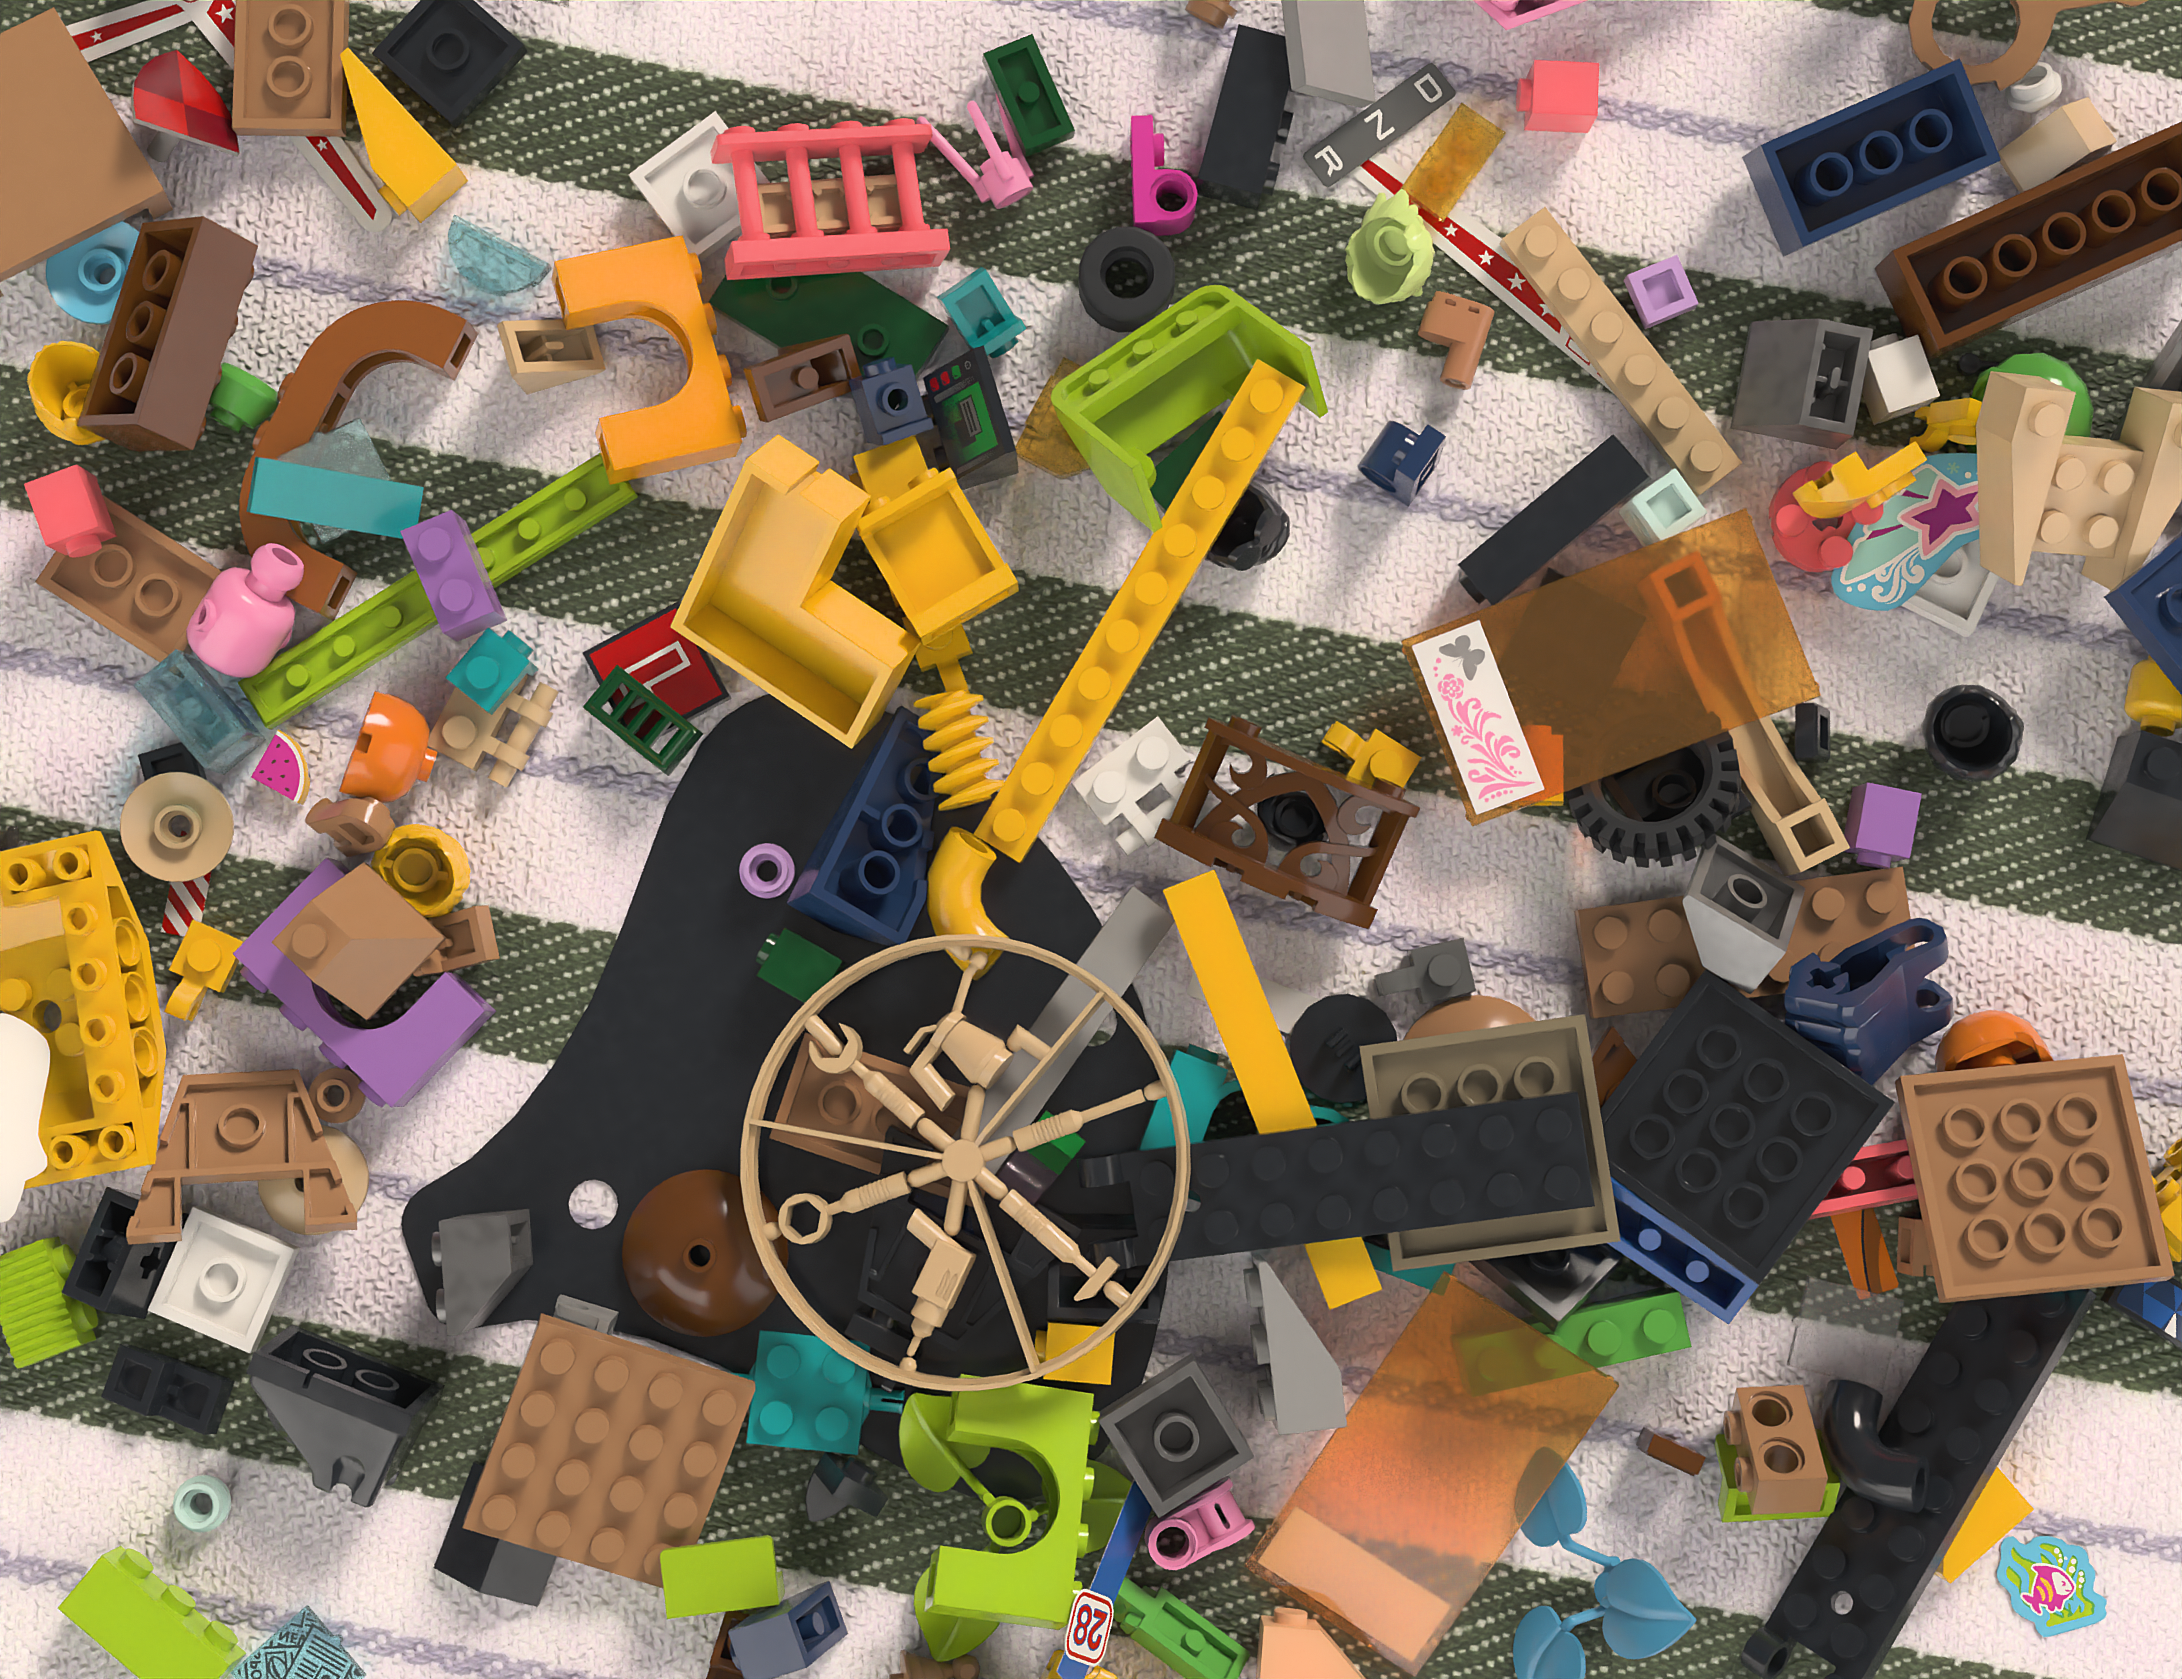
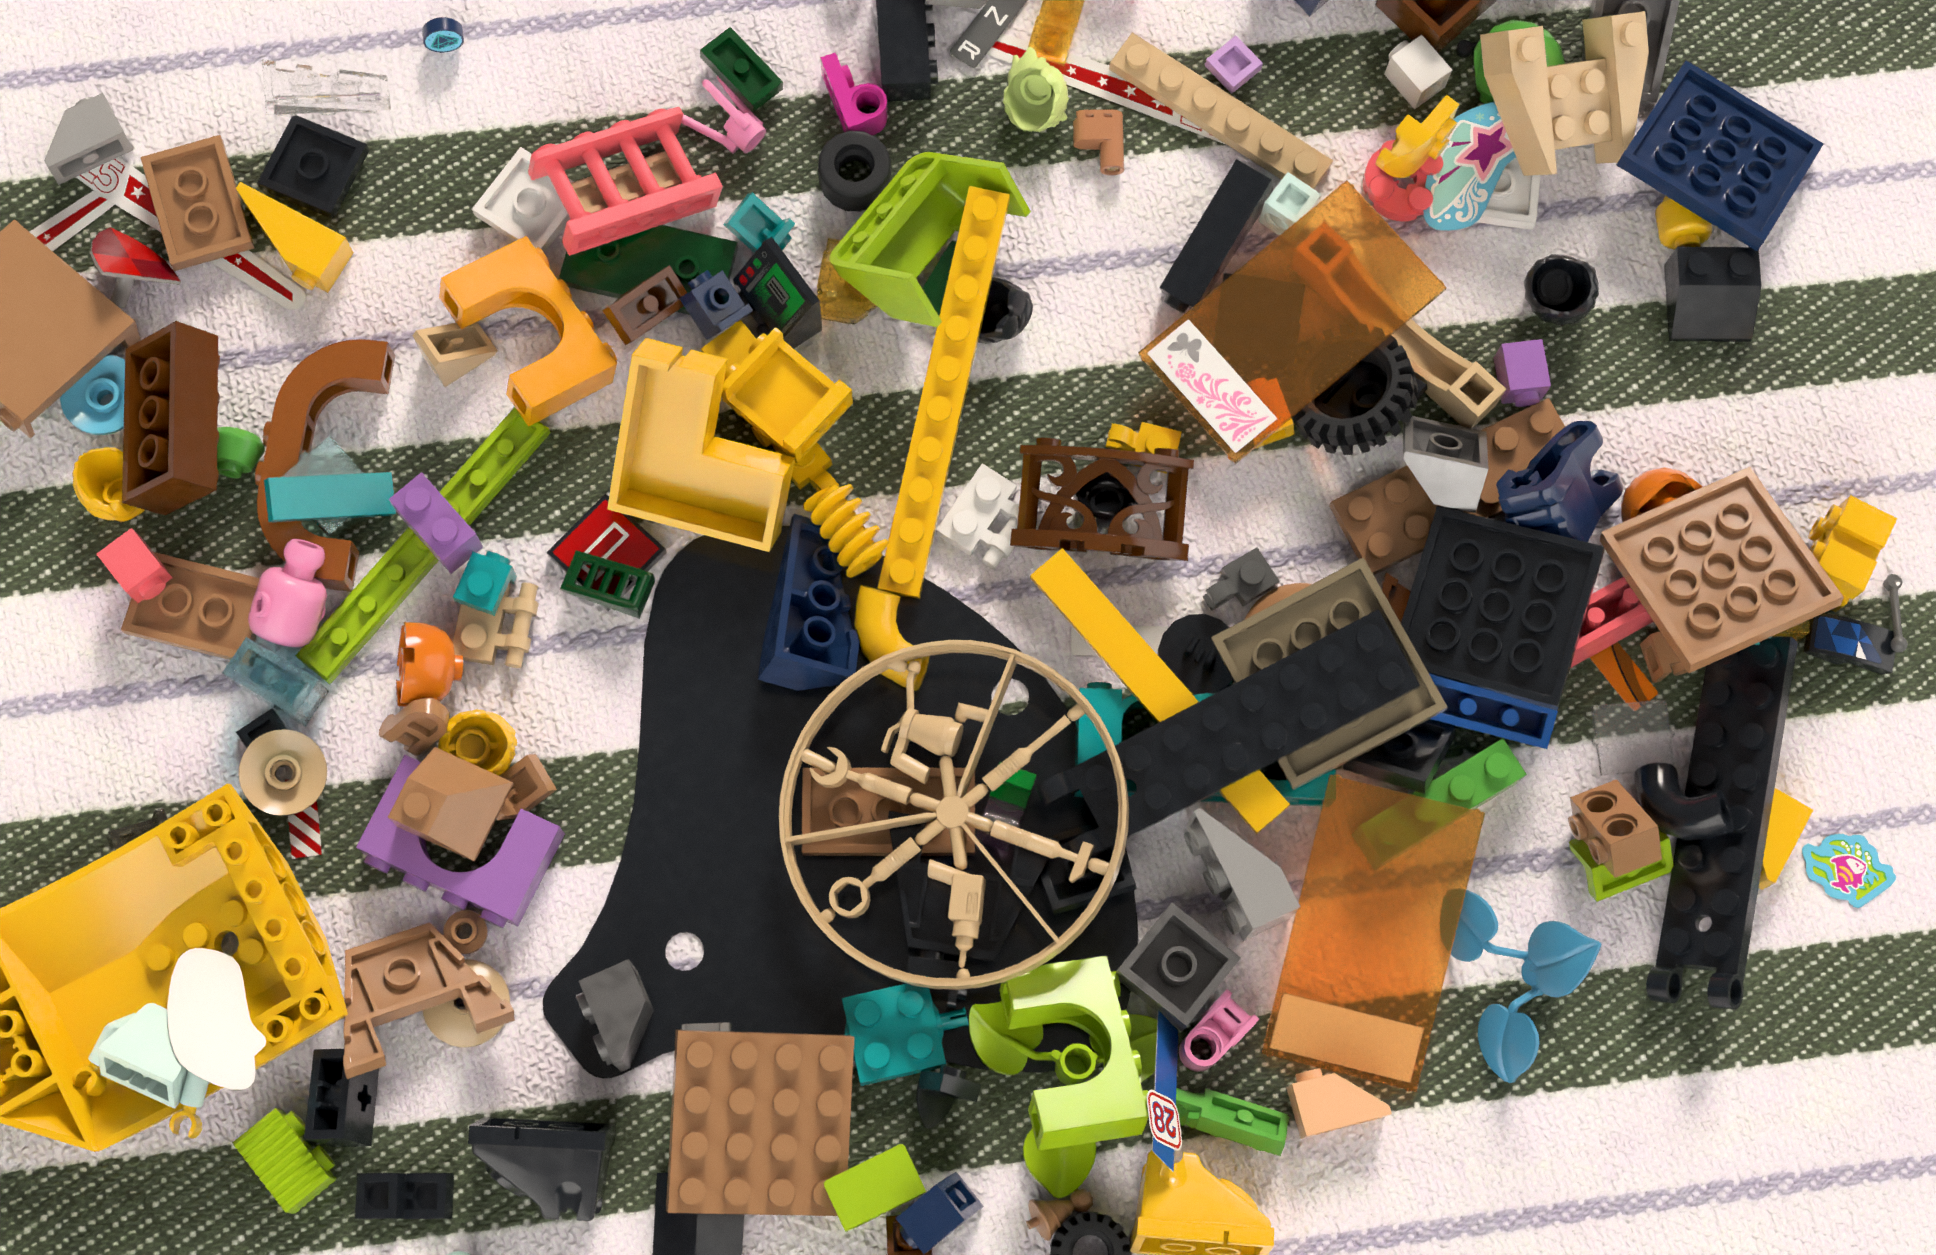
camera: 20 degrees left, 10 degrees down
(205, 962) = (333, 866): yellow plate -> none
(224, 1279) = (422, 1097): white plate -> none
(284, 768) = (349, 707): dark pink tile -> none
(492, 262) = (389, 301): clear light blue tile -> none
(657, 1261) = (773, 988): reddish brown dish -> none
(750, 865) = (734, 651): lavender plate -> none
(796, 964) = (779, 721): dark green brick -> none
(1062, 1336) = (1095, 939): yellow brick -> none
(1113, 958) = (1015, 629): light grey tile -> none
(1402, 460) = (1095, 230): dark blue plate -> none
(1670, 1452) = (1540, 861): reddish brown tile -> none
(1802, 380) = (1354, 91): flat silver slope -> none
(1812, 733) = (1451, 326): black tile -> none
(1948, 421) = (1466, 84): yellow plate -> none

